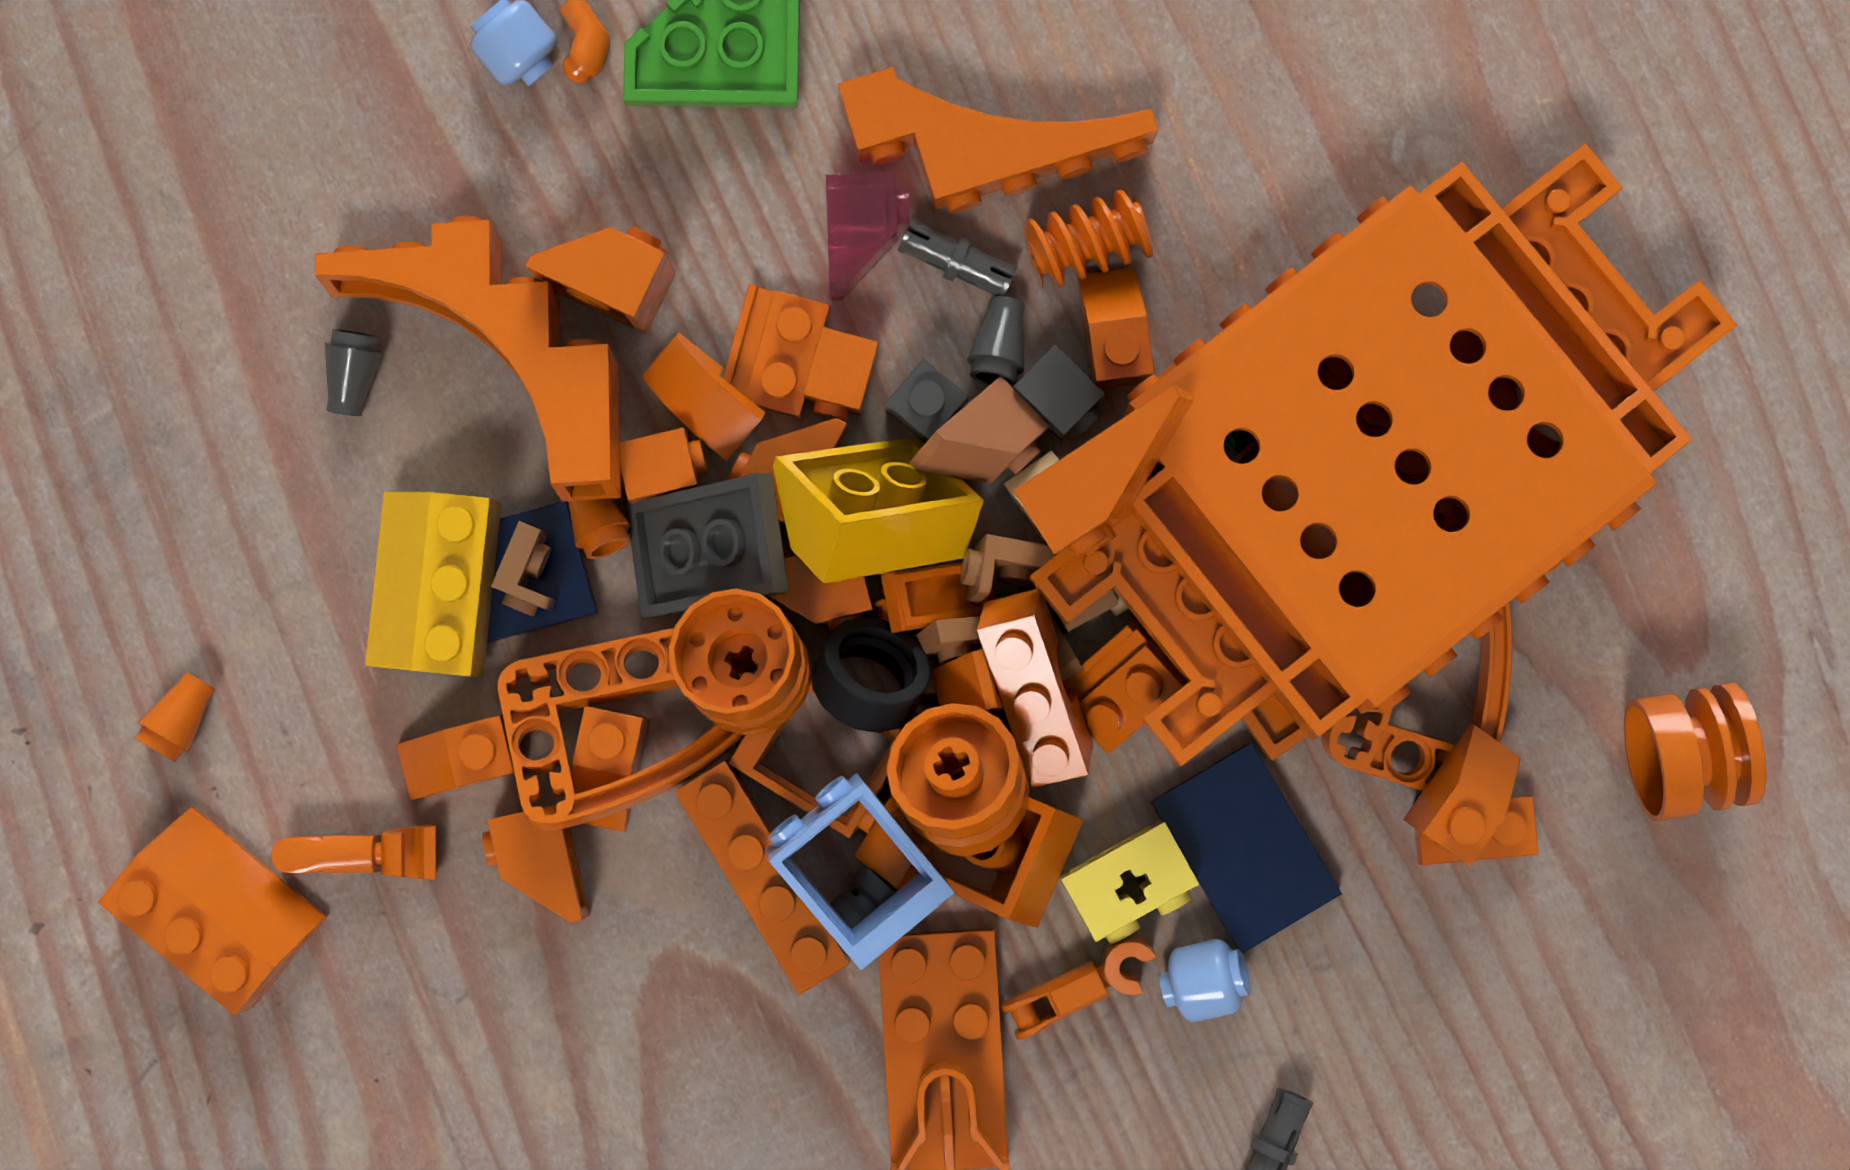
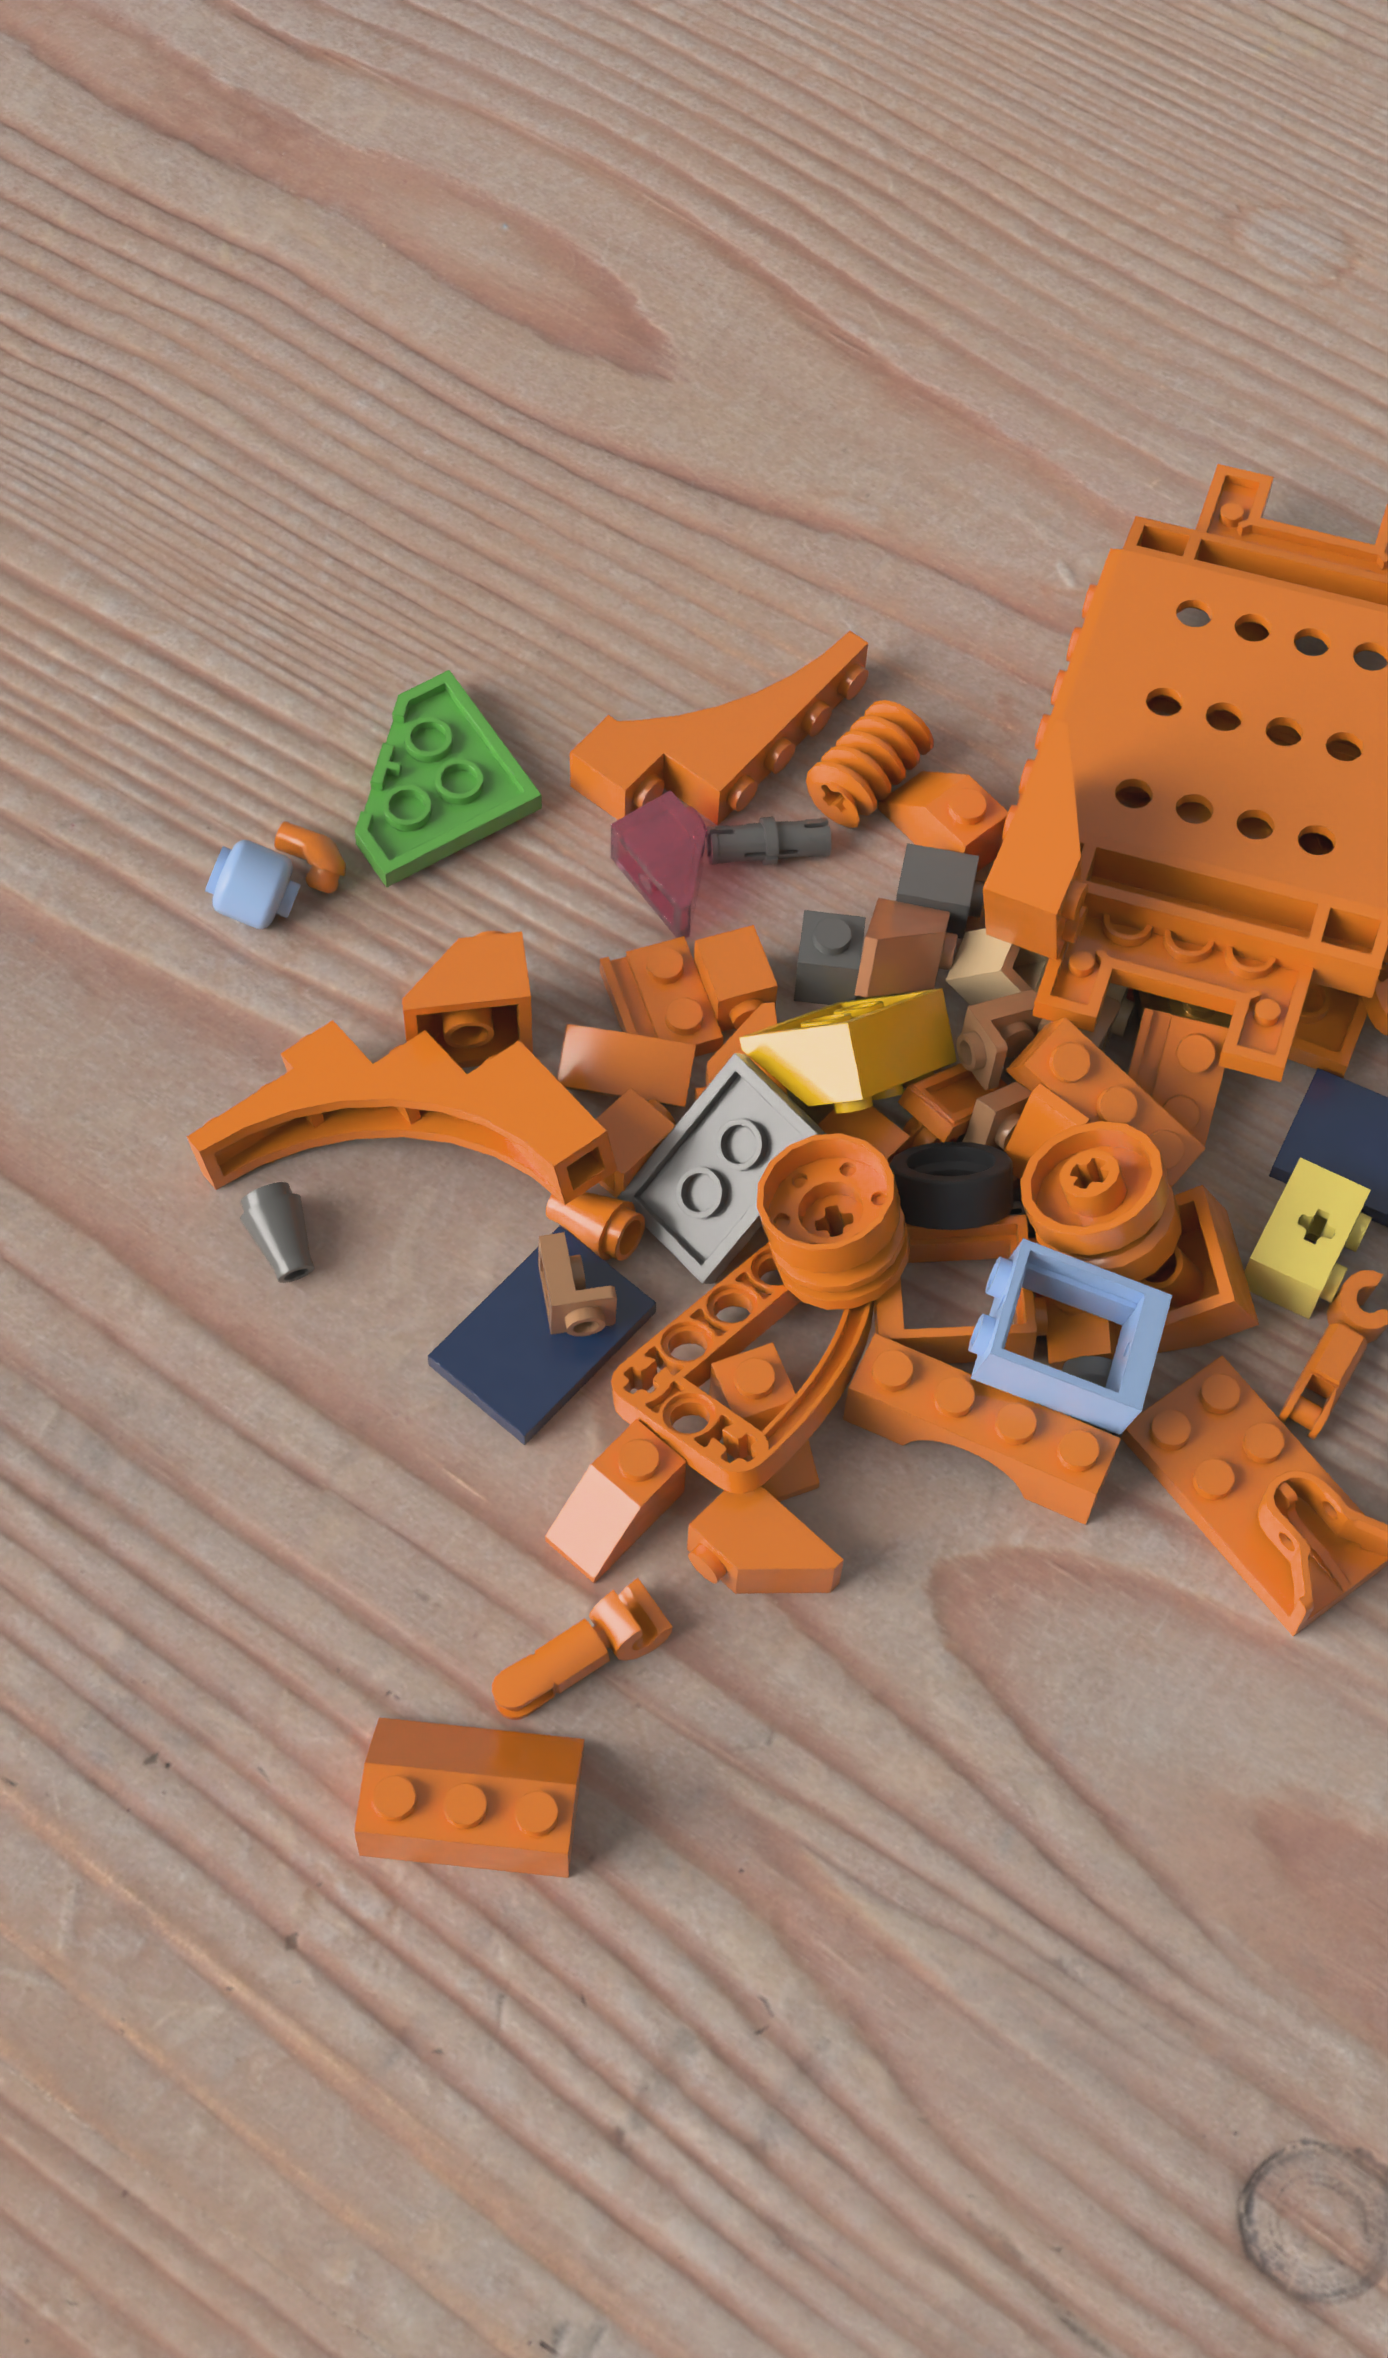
camera: 35 degrees left, 25 degrees down
(176, 717) = (311, 1640): orange cone -> none
(433, 583) = (488, 1353): yellow slope -> none
(999, 343) = (853, 880): dark grey cone -> none

